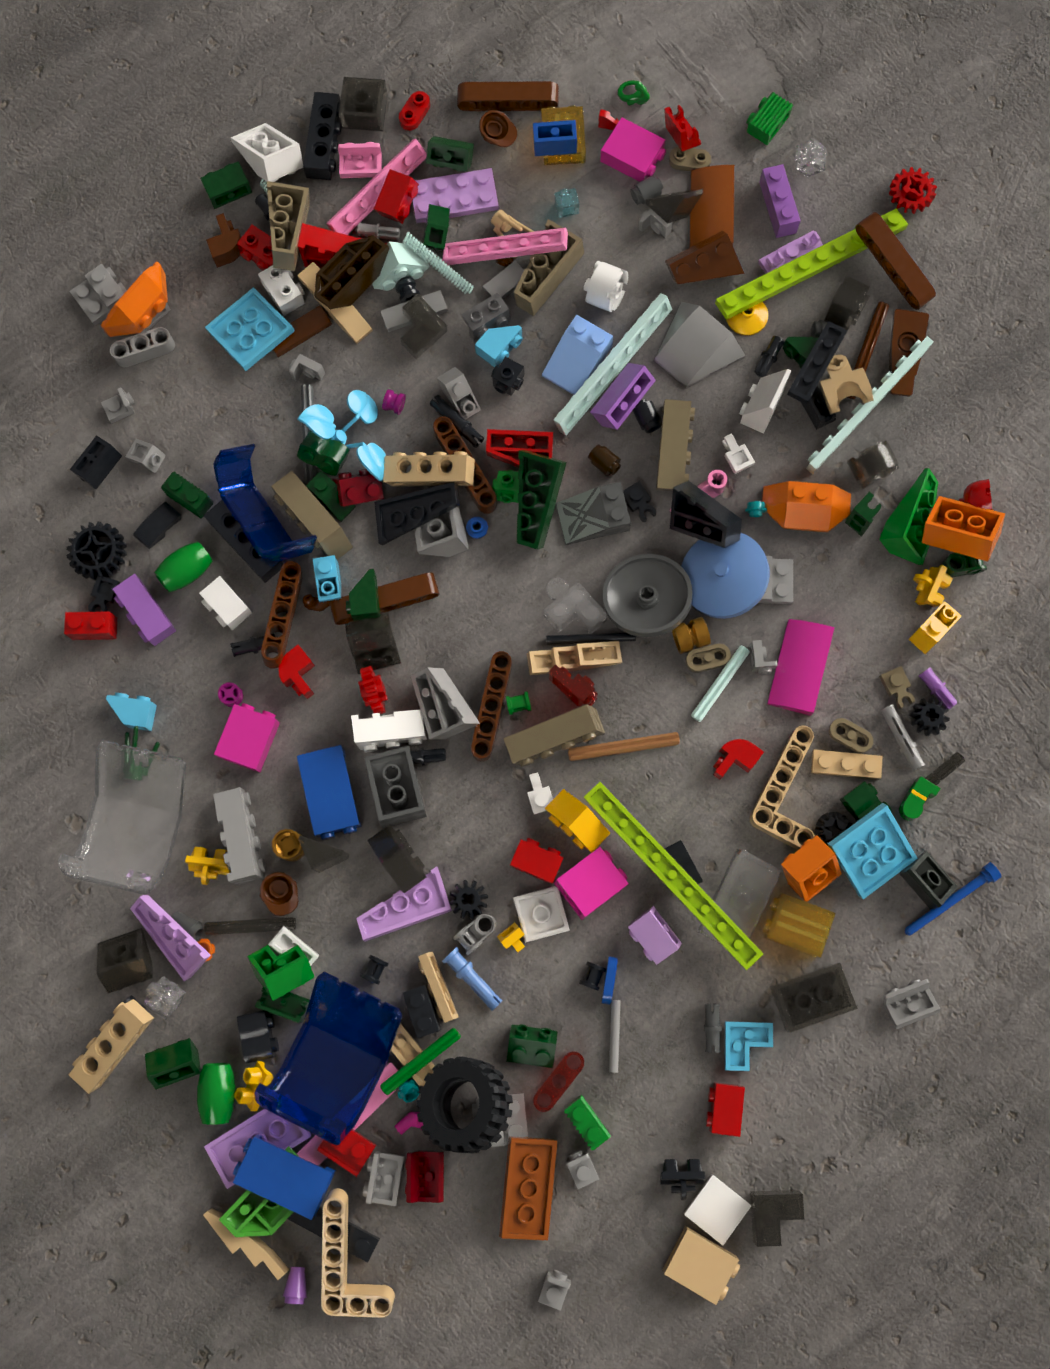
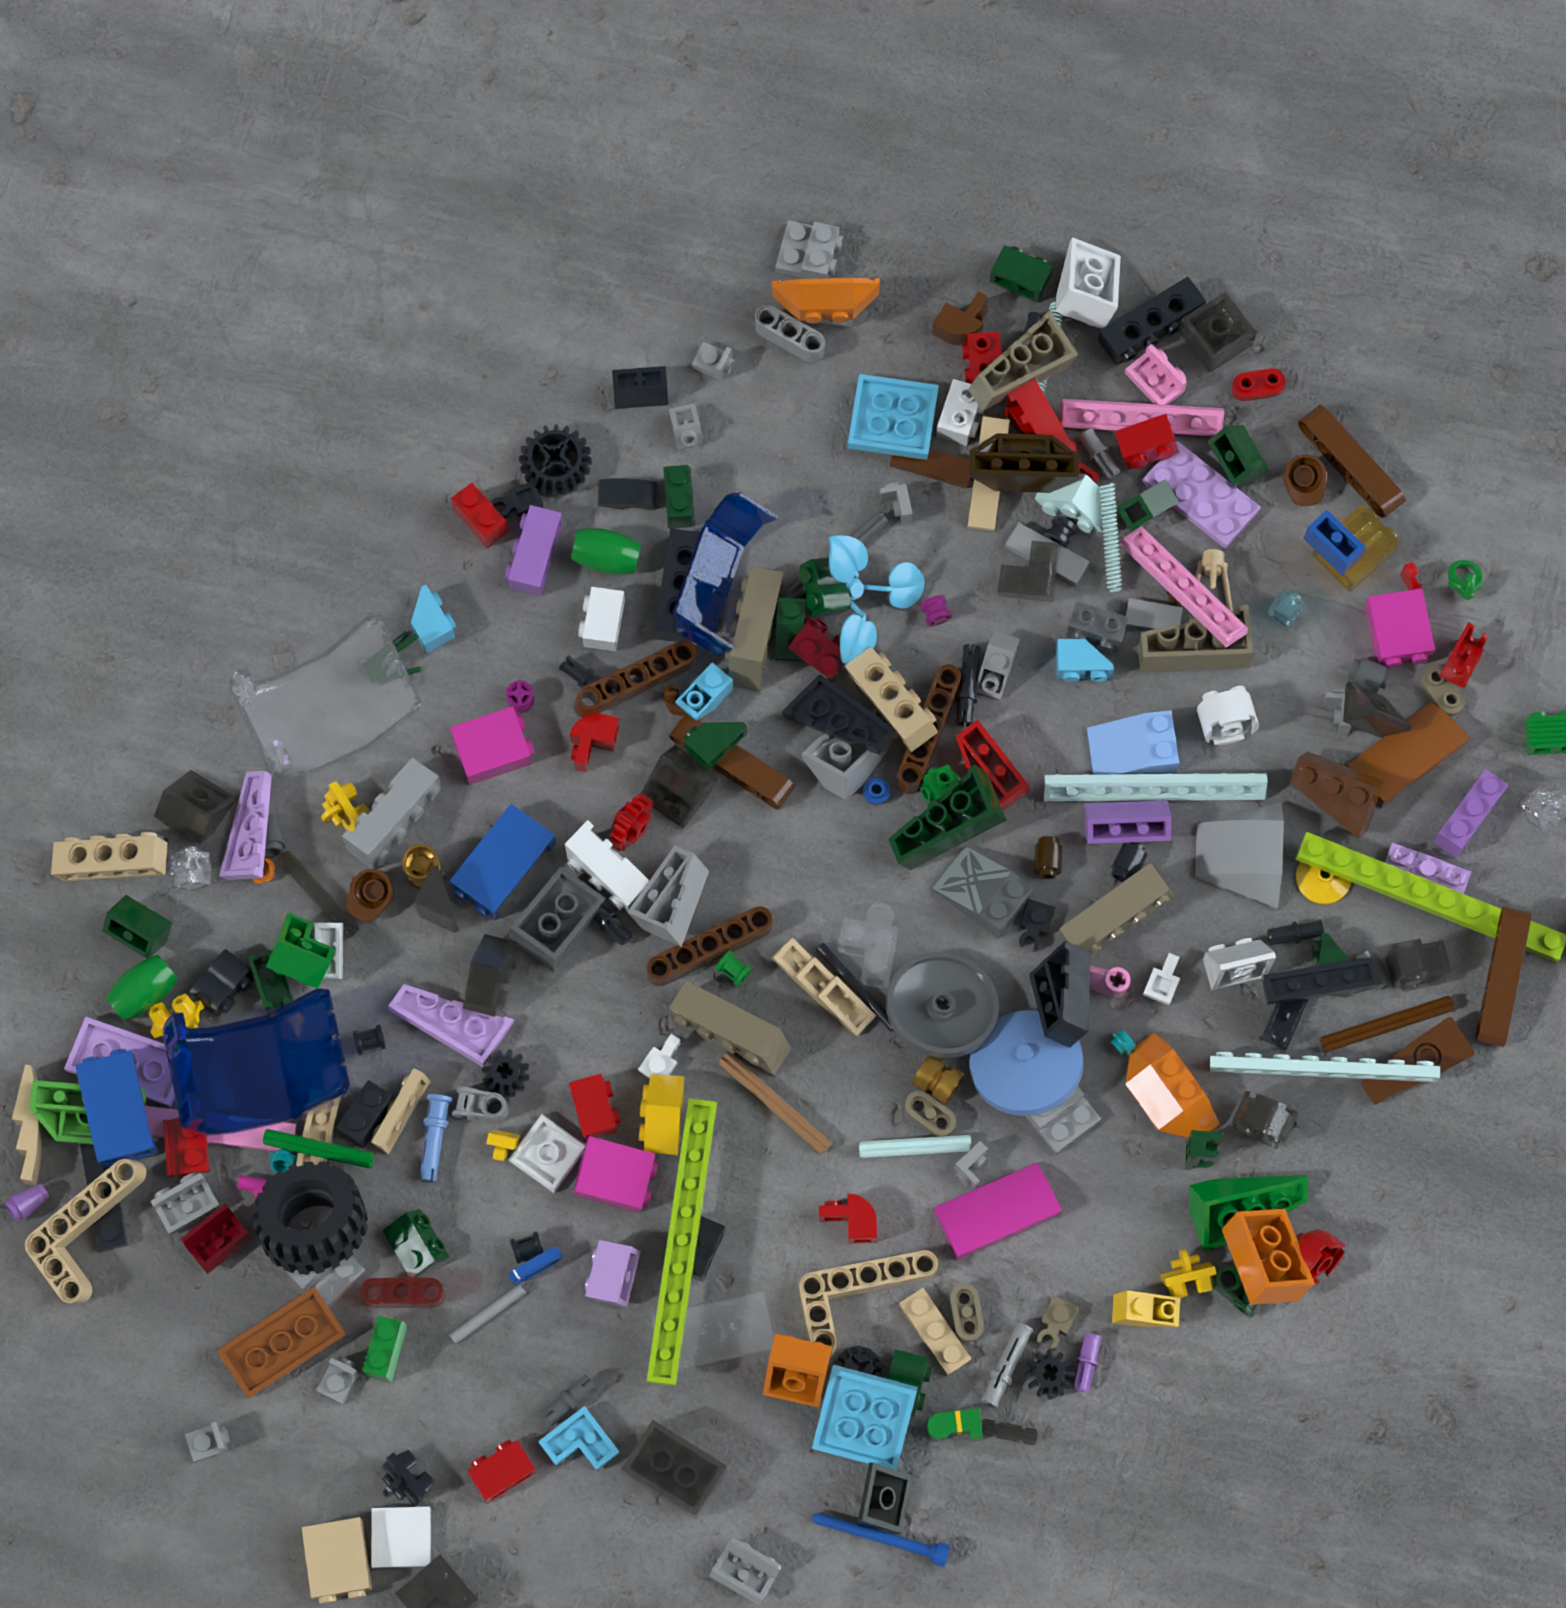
camera: 45 degrees right, 5 degrees down
(508, 376) = (1053, 697): black brick -> none
(578, 690) = (792, 1015): clear red plate -> none
(798, 925) = (734, 1404): clear yellow brick -> none
(844, 383) = (1322, 1023): tan piece -> none

